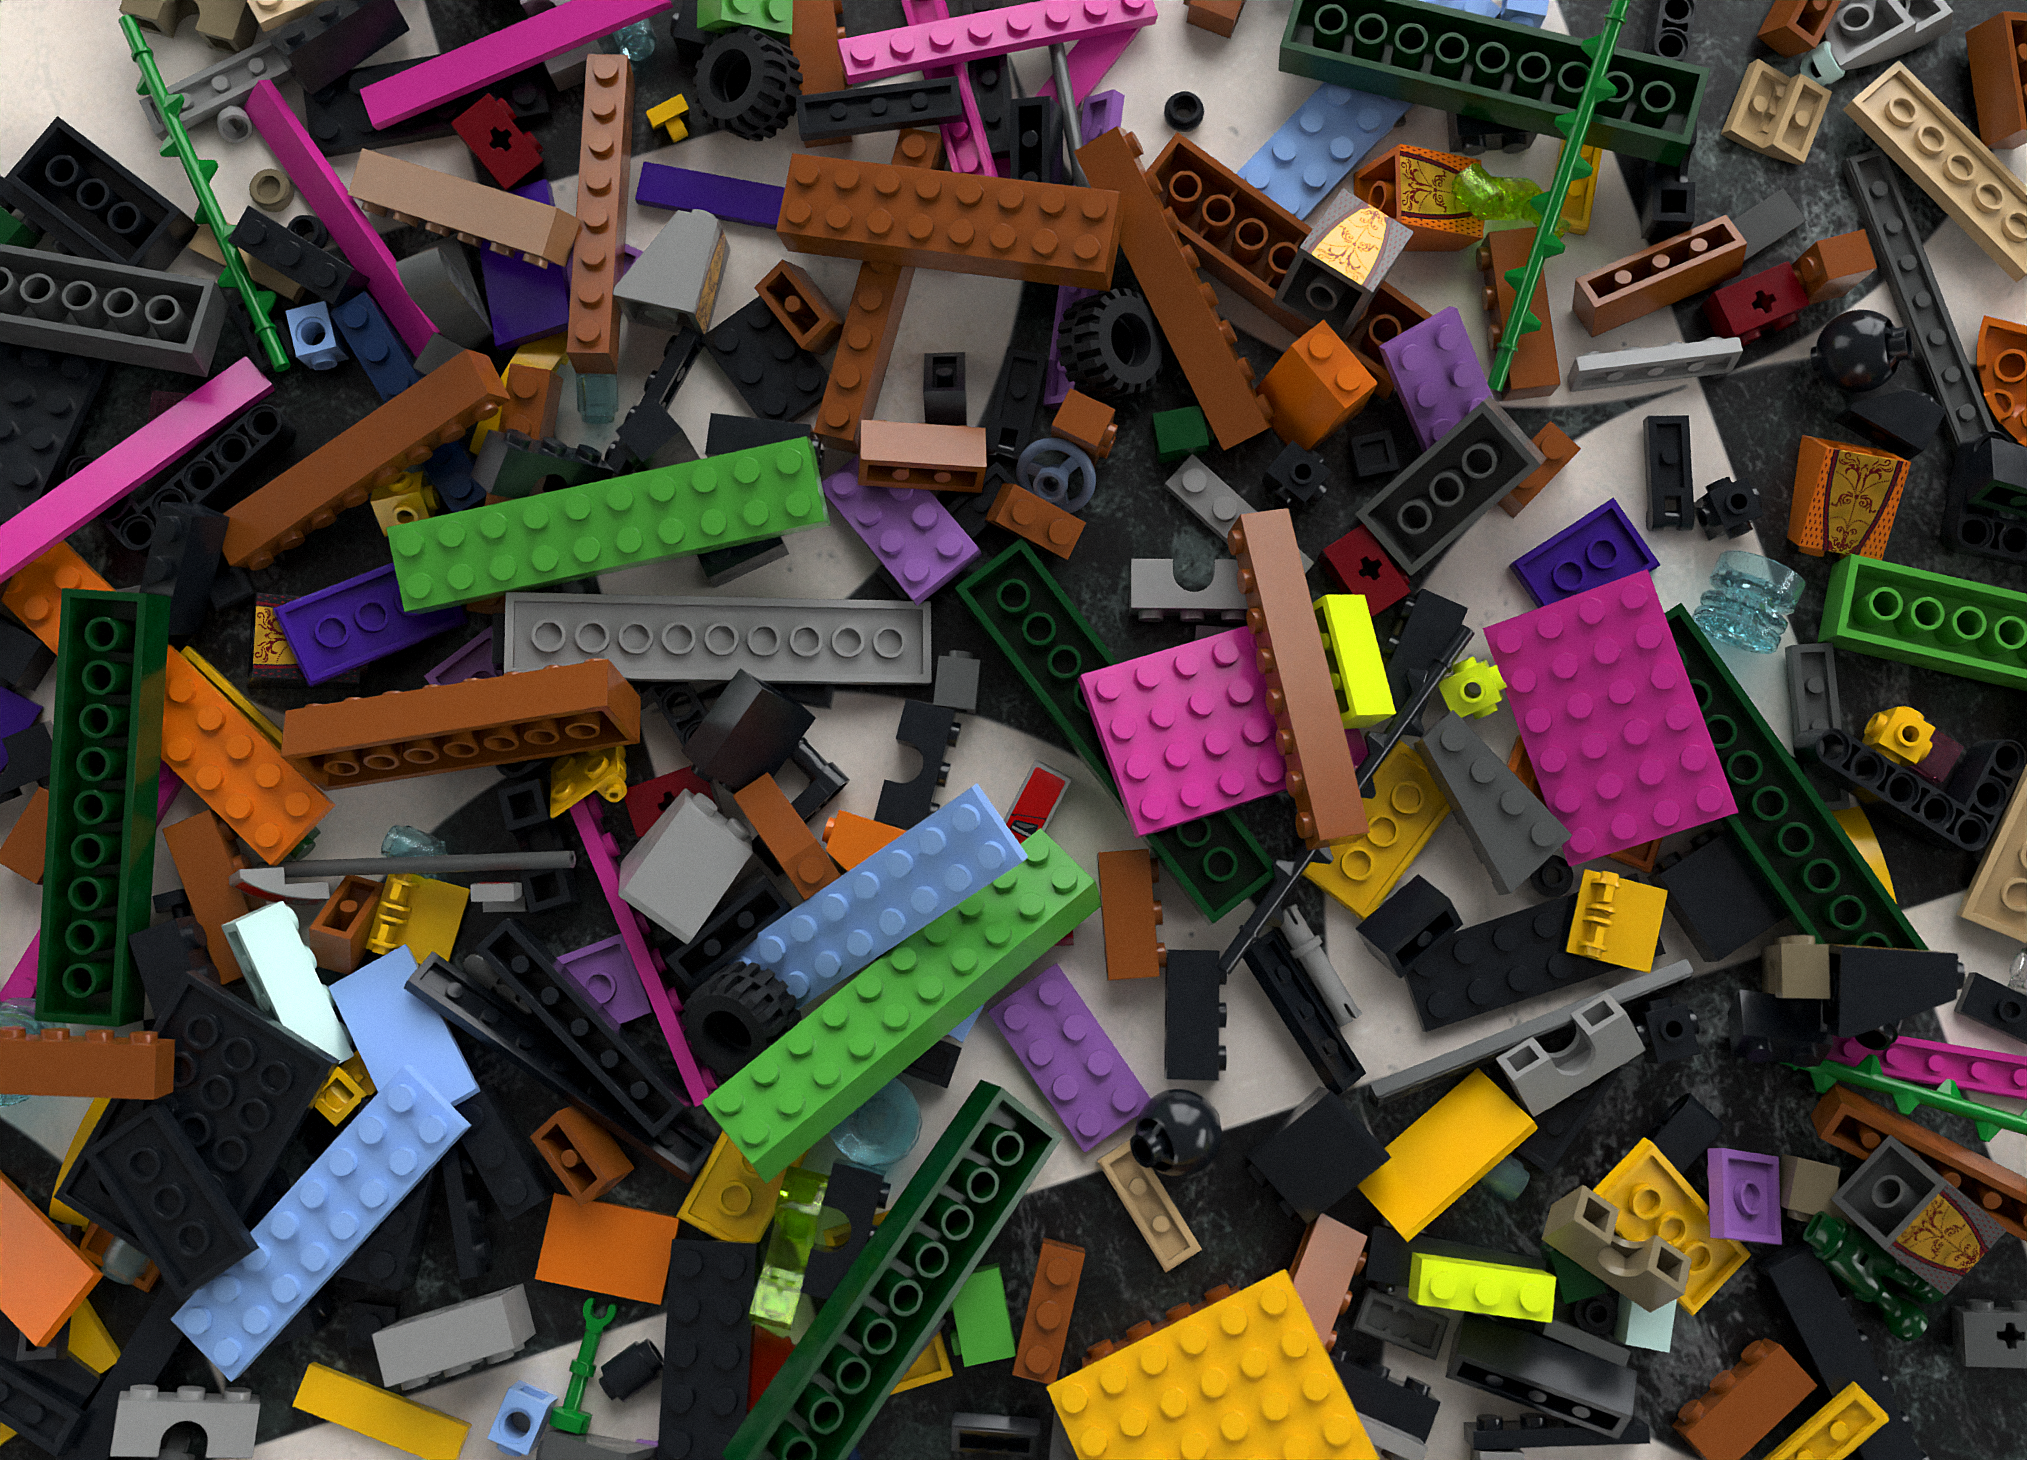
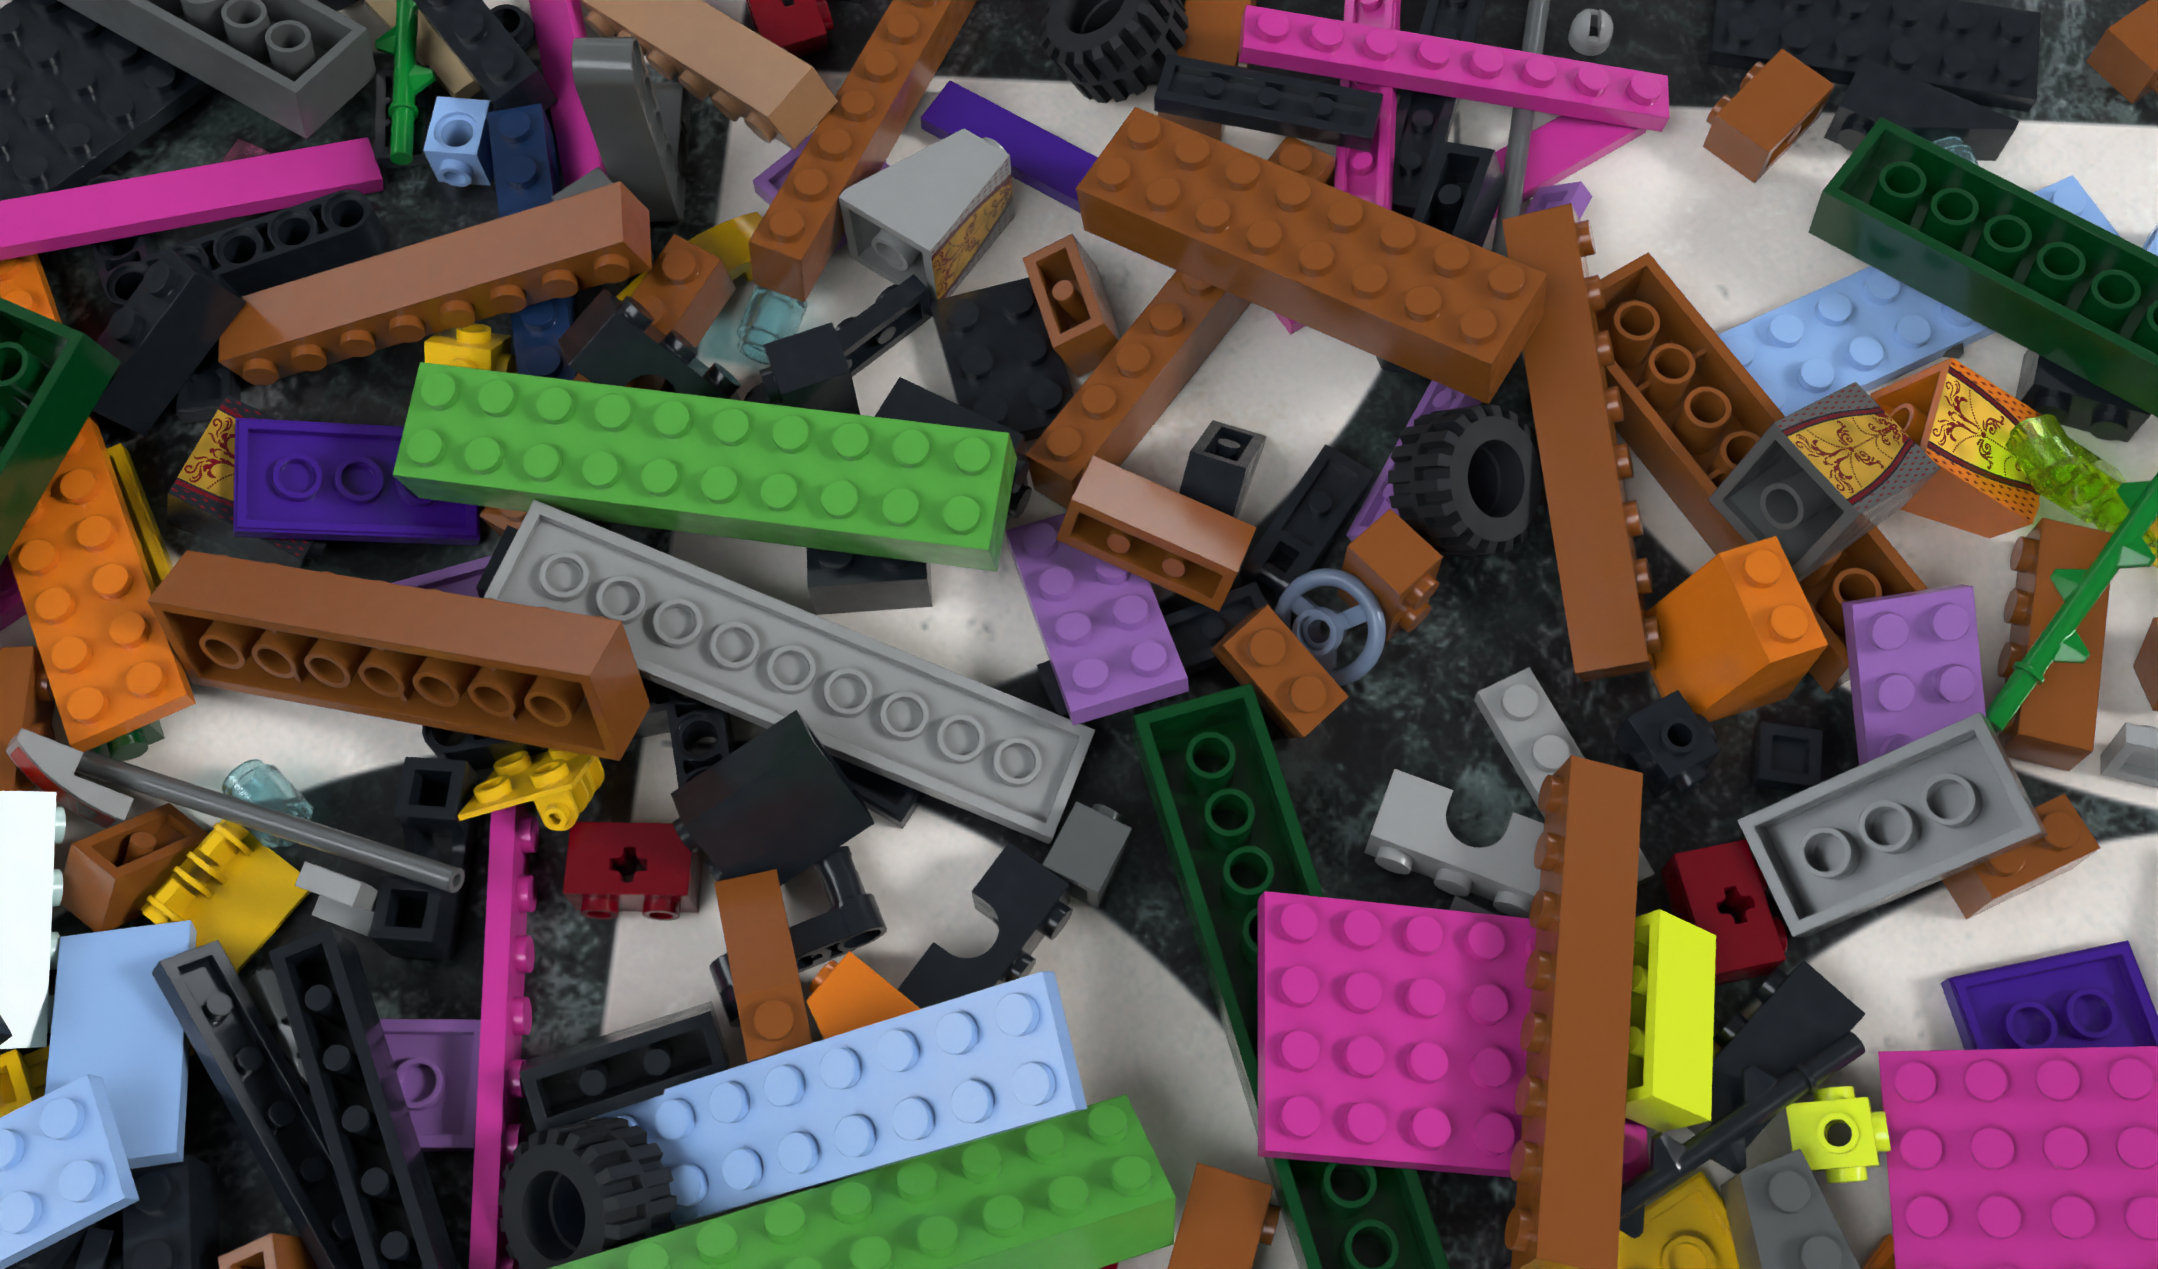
camera: 20 degrees right, 15 degrees down
(524, 298) = (731, 174): dark purple tile -> none
(669, 114) = (1003, 38): yellow tile -> none
(684, 864) = (607, 952): light grey slope -> none
(1036, 800) = (1137, 1056): red slope -> none
(1180, 434) = (1522, 634): dark green brick -> none
(1187, 101) = (1670, 233): black plate -> none

